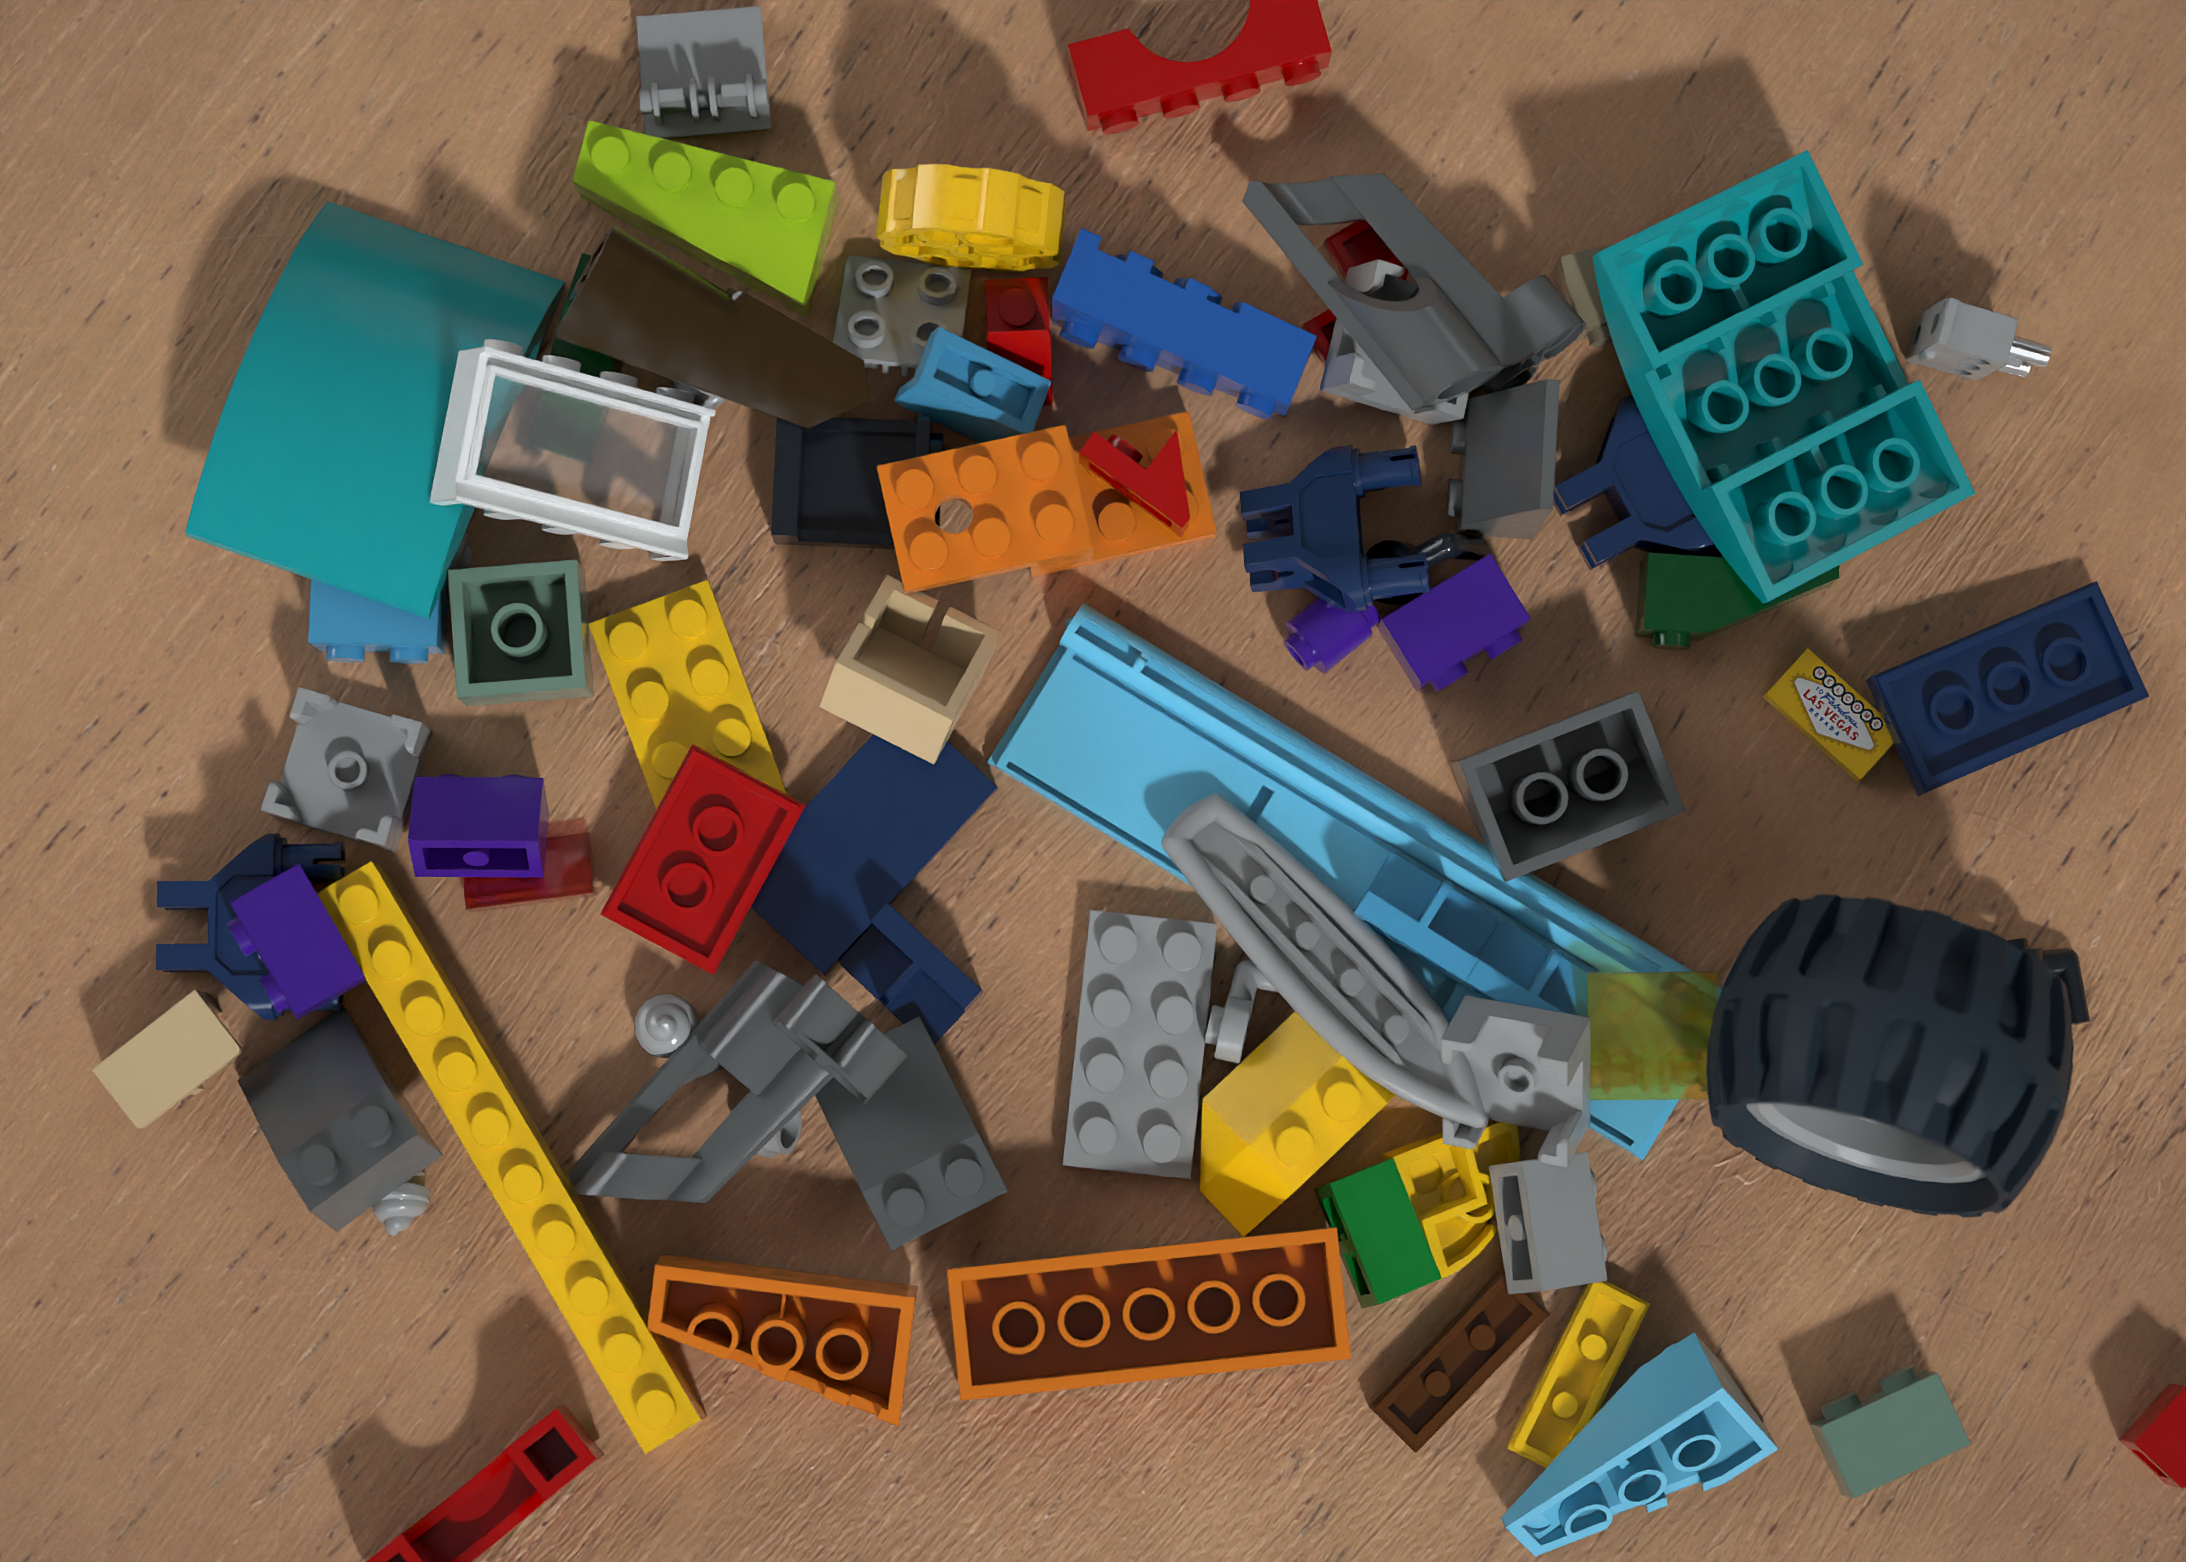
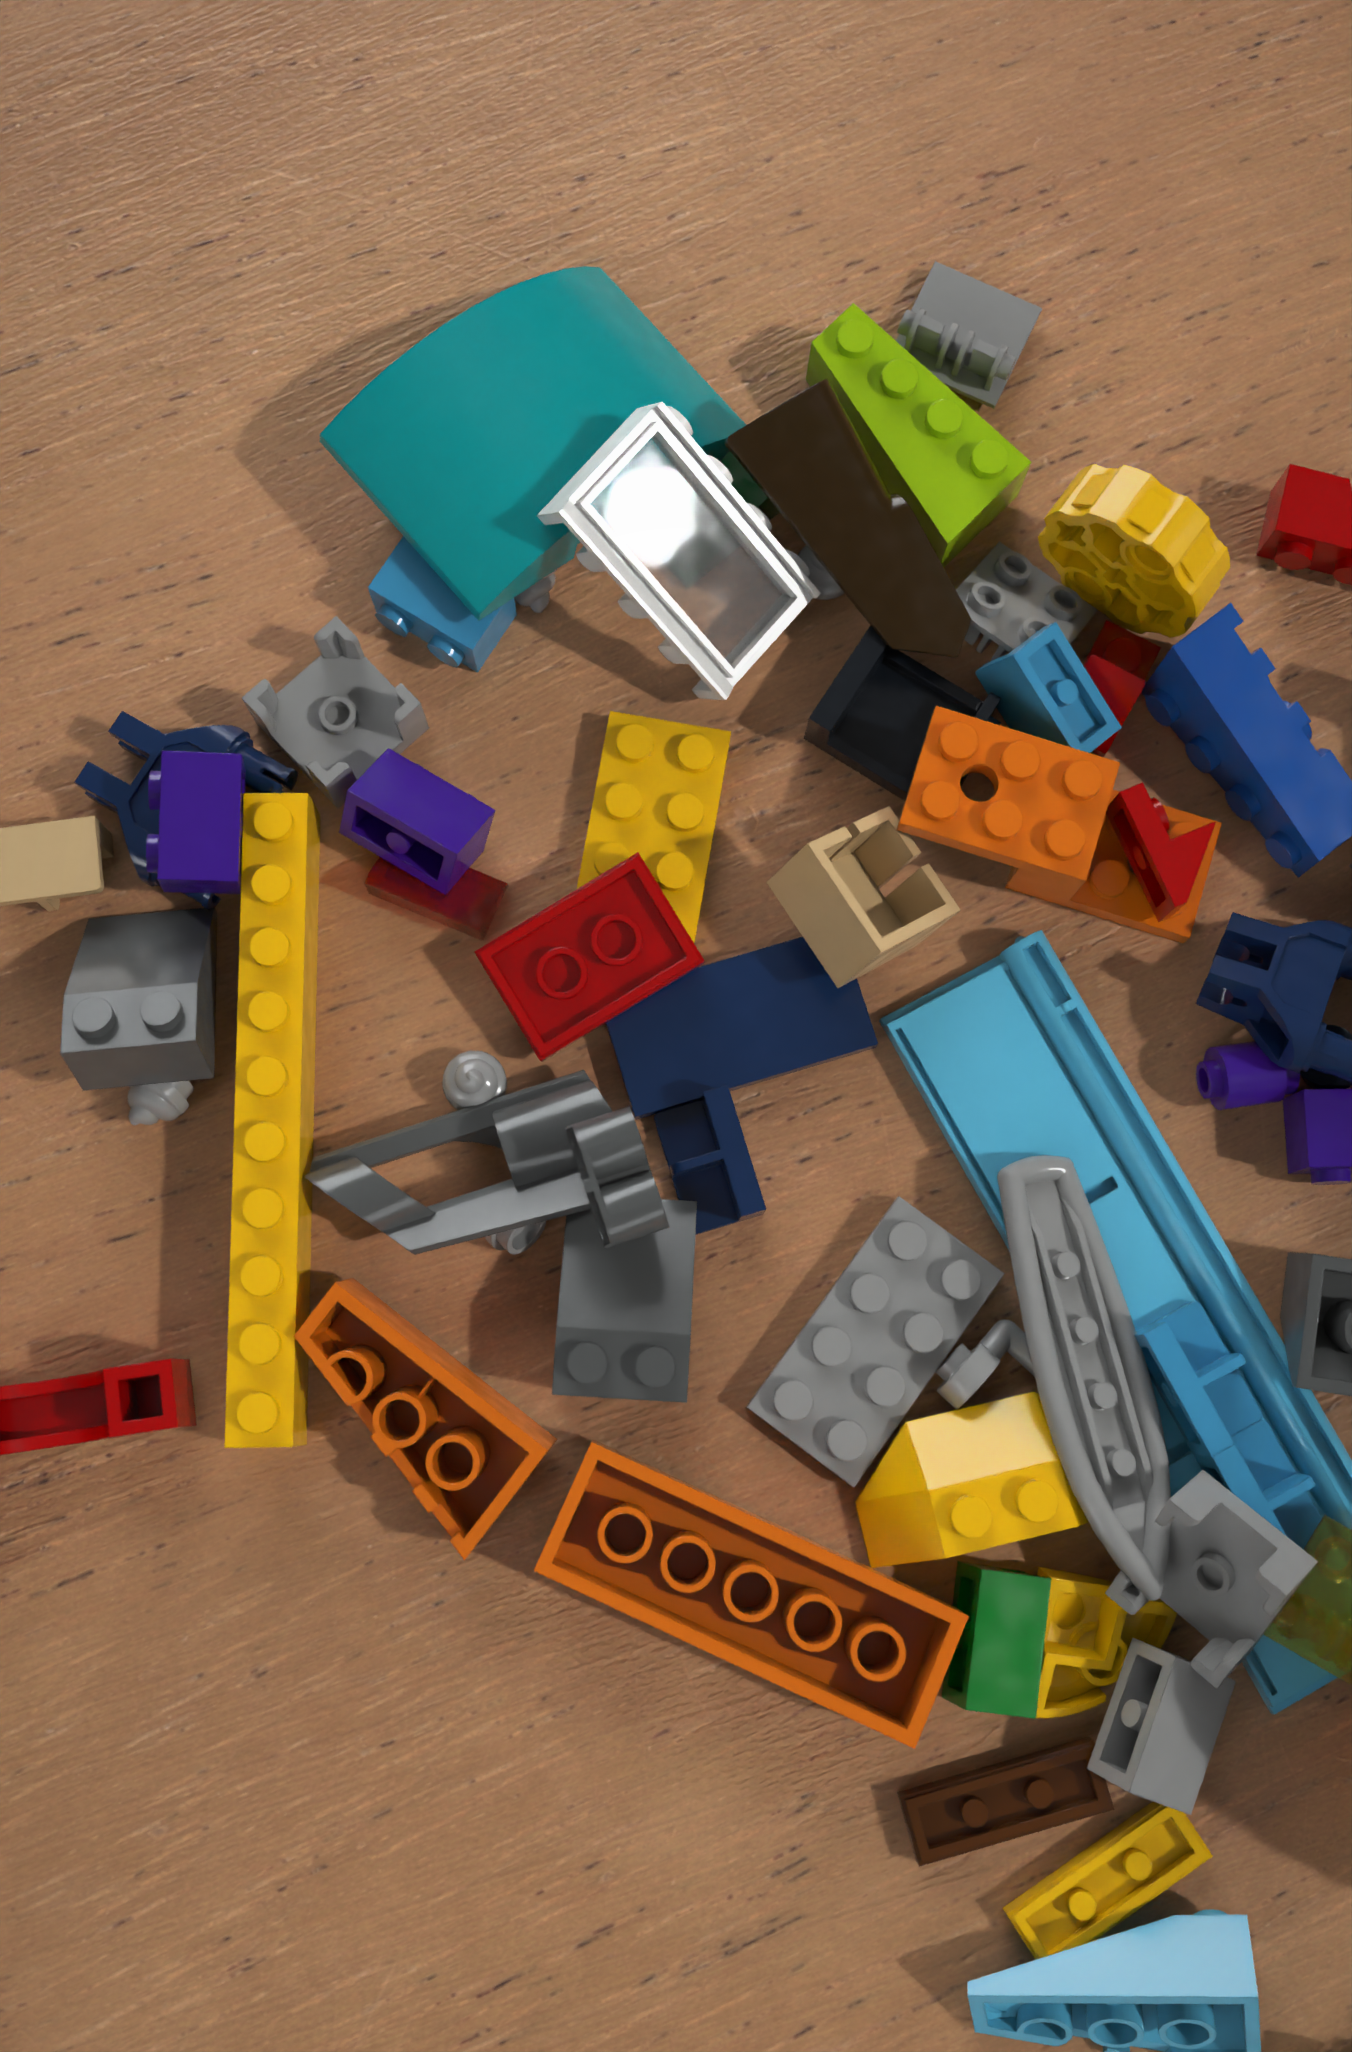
camera: 30 degrees right, 5 degrees down
(520, 633) = (548, 681): sand green brick -> none

